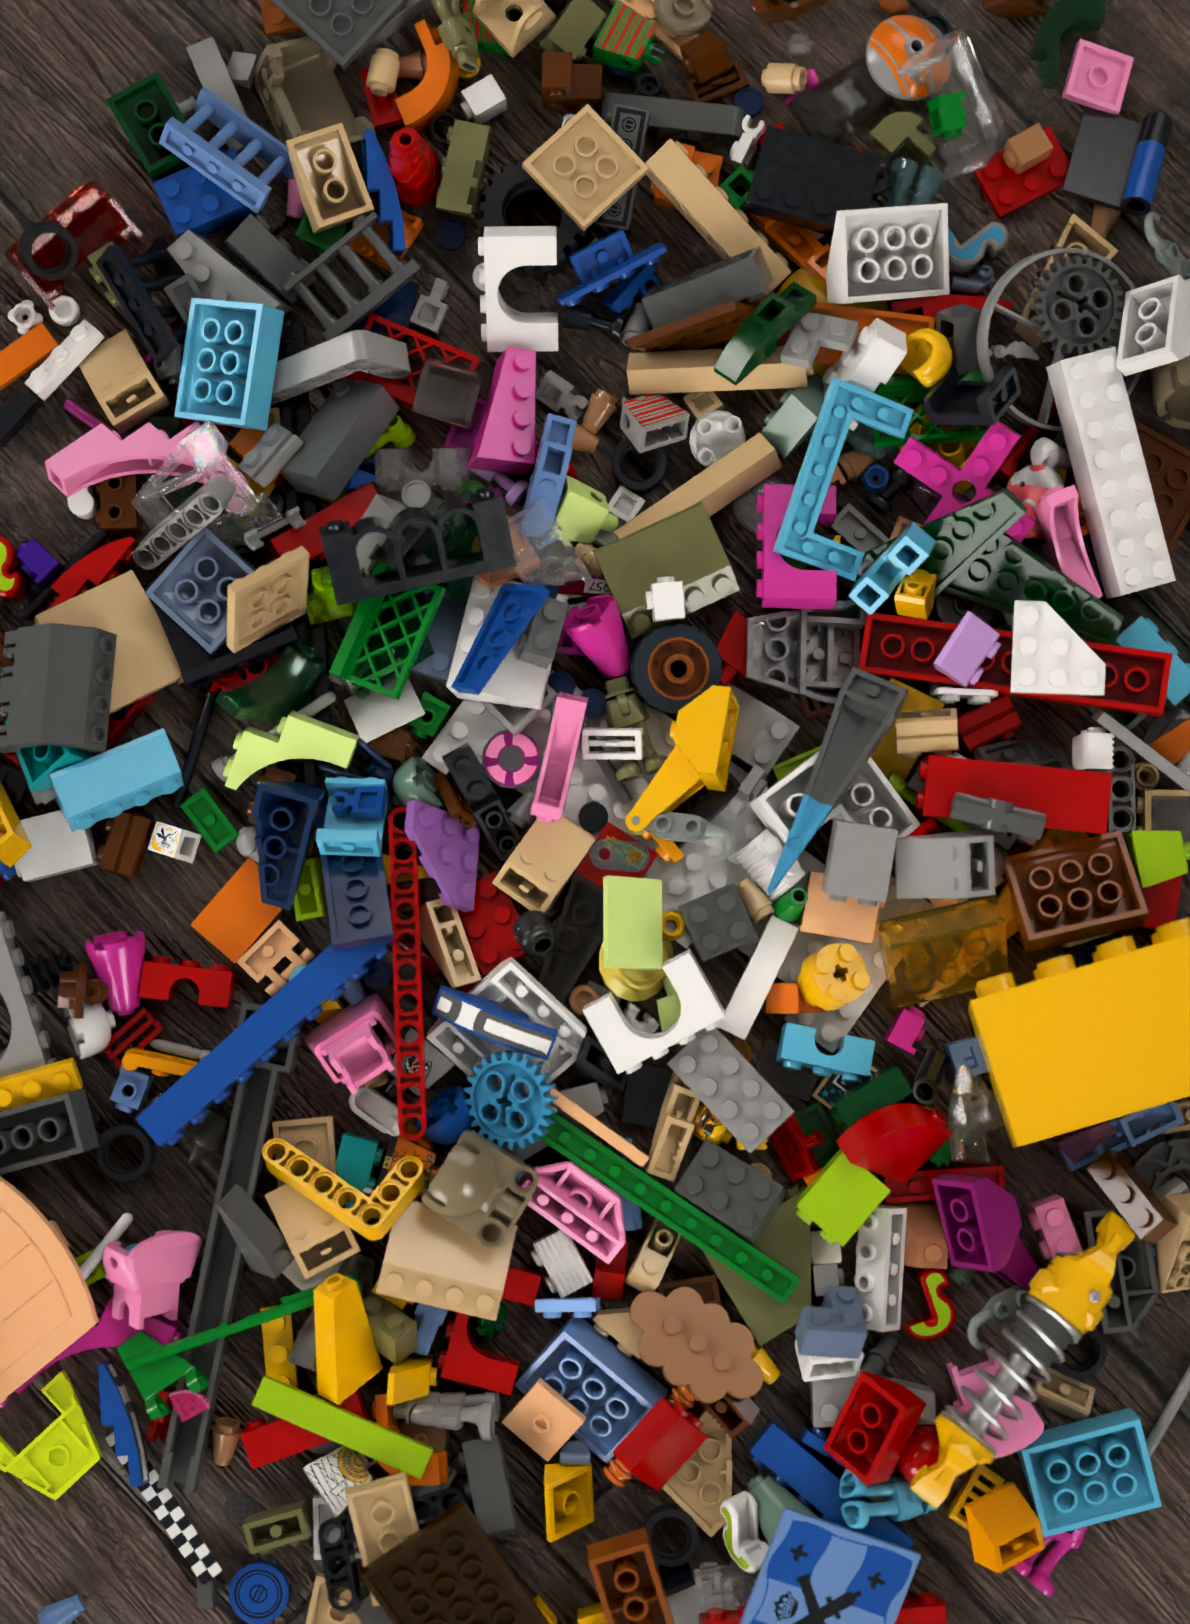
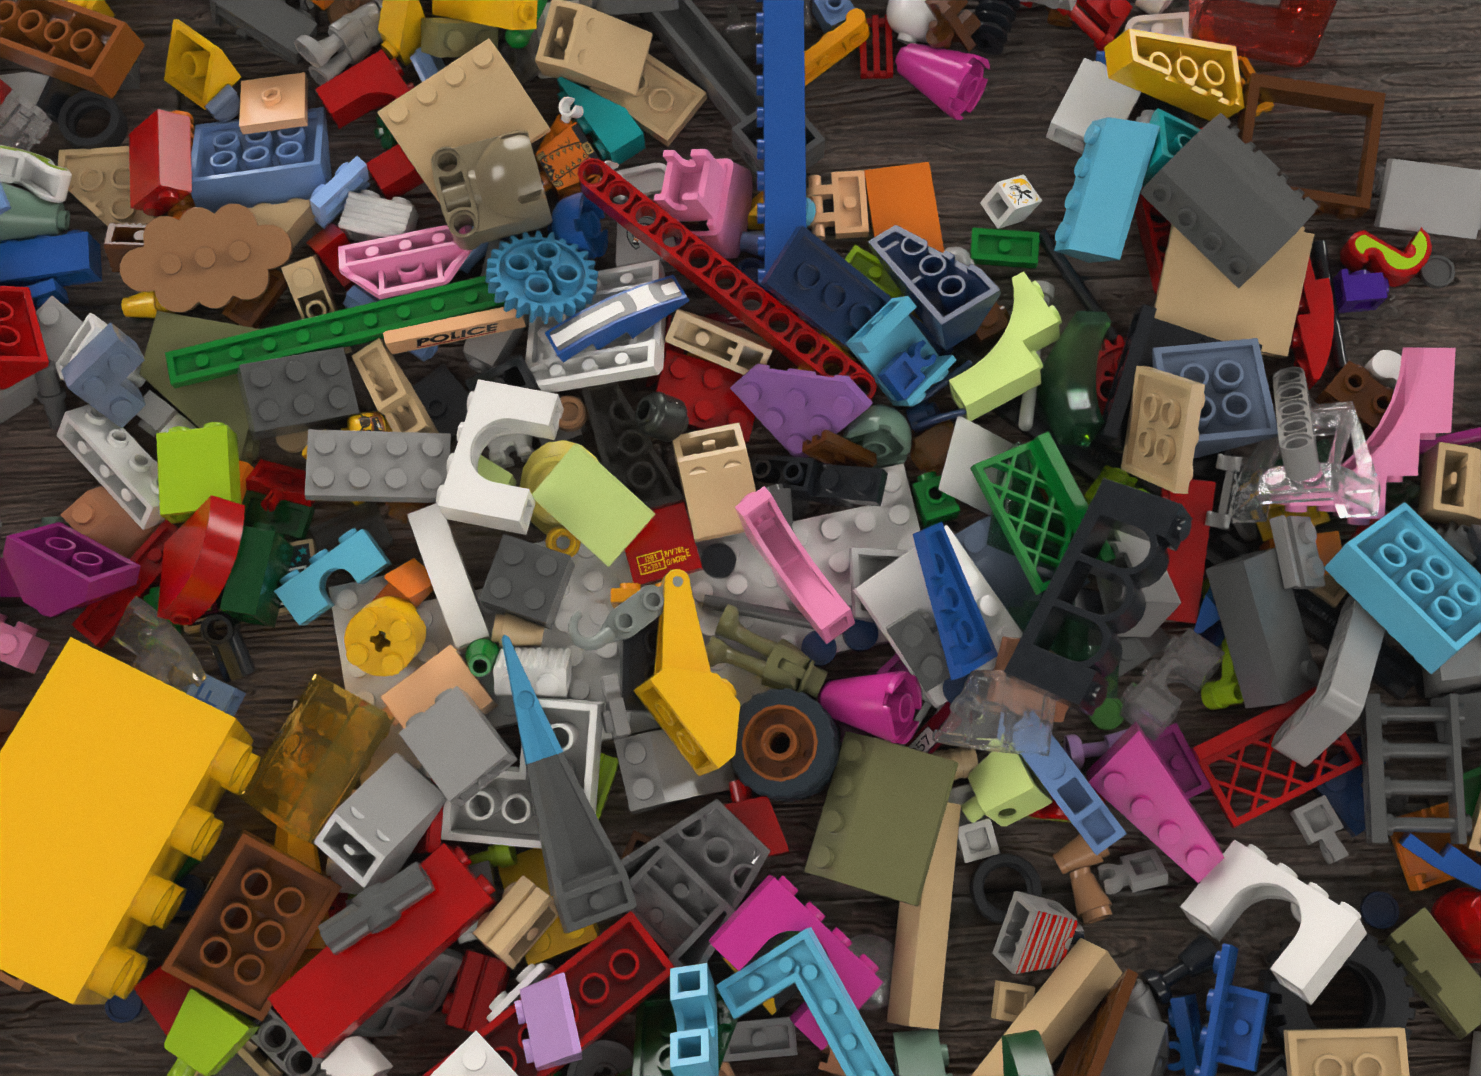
camera: 135 degrees right, 10 degrees down
(125, 844) = (1043, 164): reddish brown brick -> none
(178, 1049) = (831, 75): light grey piece -> none
(214, 984) = (863, 139): red arch -> none
(342, 1192) = (595, 82): yellow beam -> none
(416, 494) = (1148, 651): light grey piece -> none
(448, 392) = (1225, 766): clear smoke slope -> none
(511, 759) = (830, 531): tile -> none
(619, 856) = (665, 550): clear light blue plate -> none
(638, 743) = (757, 654): white tile -> none
(666, 599) = (852, 786): white brick -> none
(715, 436) = (970, 985): white dish -> none
(906, 1029) = (286, 667): dark pink brick -> none
(916, 594) = (649, 1029): yellow slope -> none
(939, 1307) = (34, 476): red animal -> none

